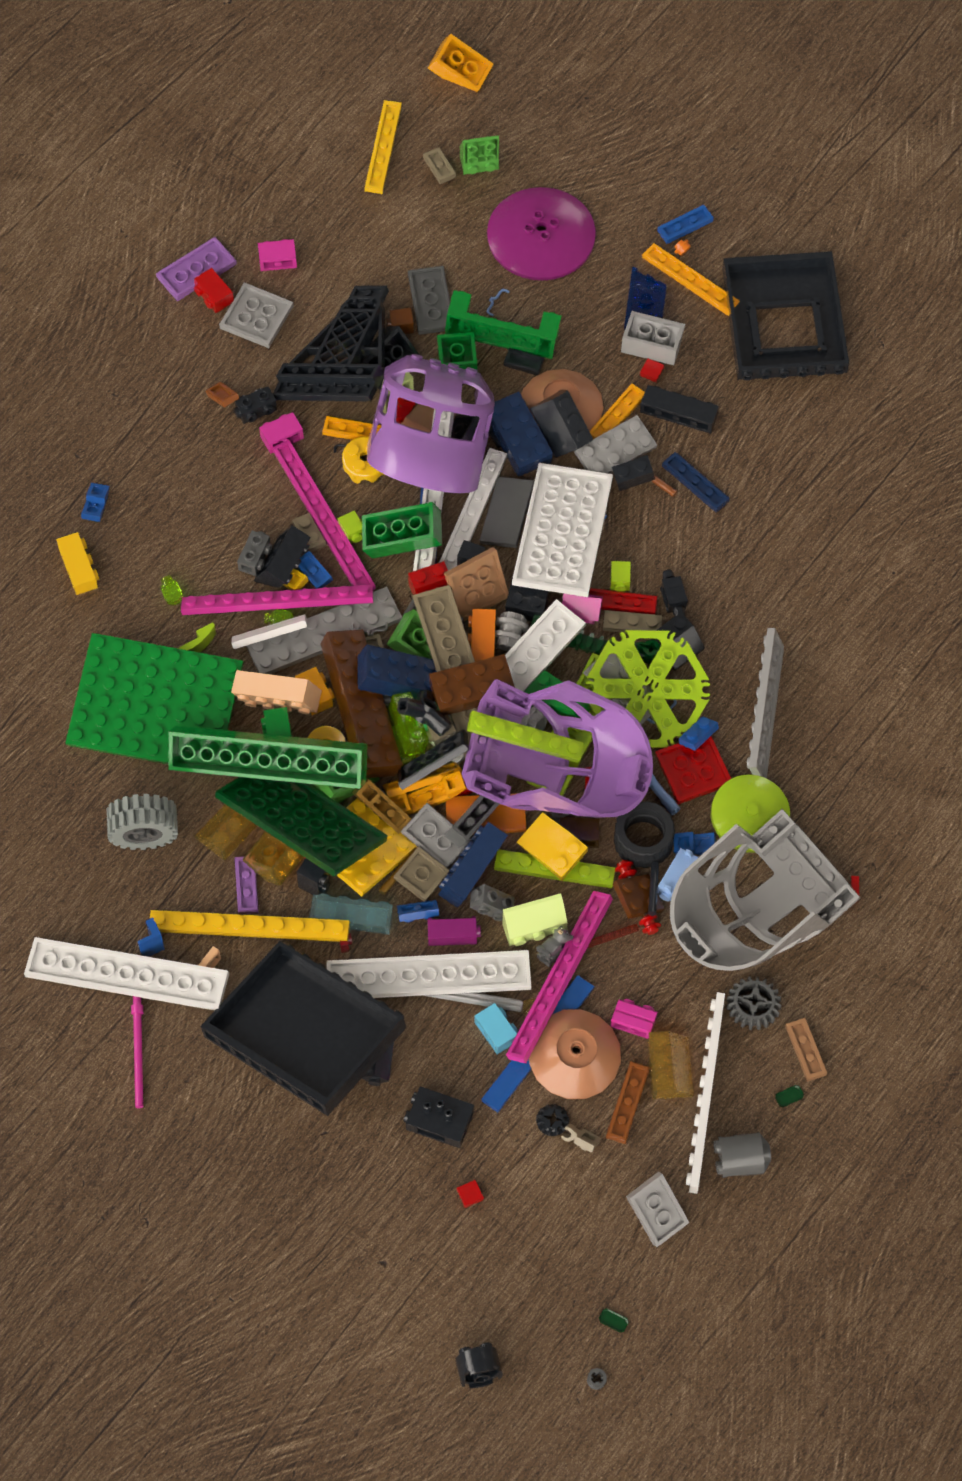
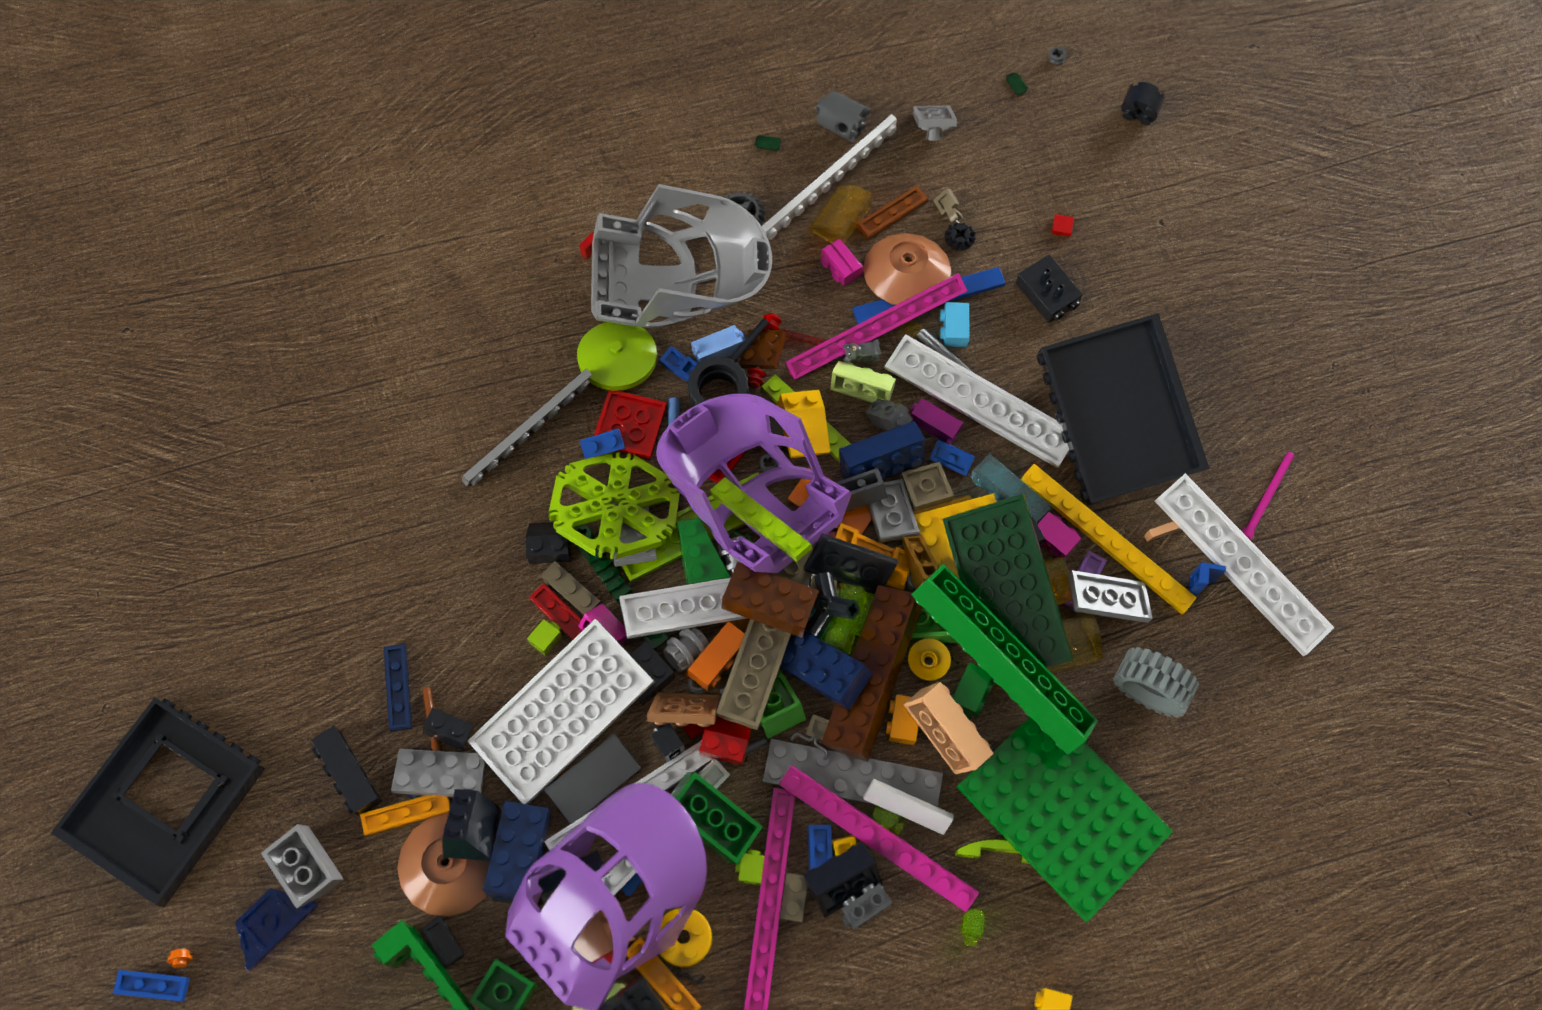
camera: 145 degrees left, 5 degrees up
(217, 873) = (1109, 596): none -> light grey plate
(291, 901) = (1058, 537): none -> dark pink brick
(652, 370) = (332, 837): red tile -> none
(673, 593) = (514, 586): black piece -> none
(688, 277) = (205, 921): light orange tile -> none
(806, 1049) = (728, 161): medium nougat plate -> none

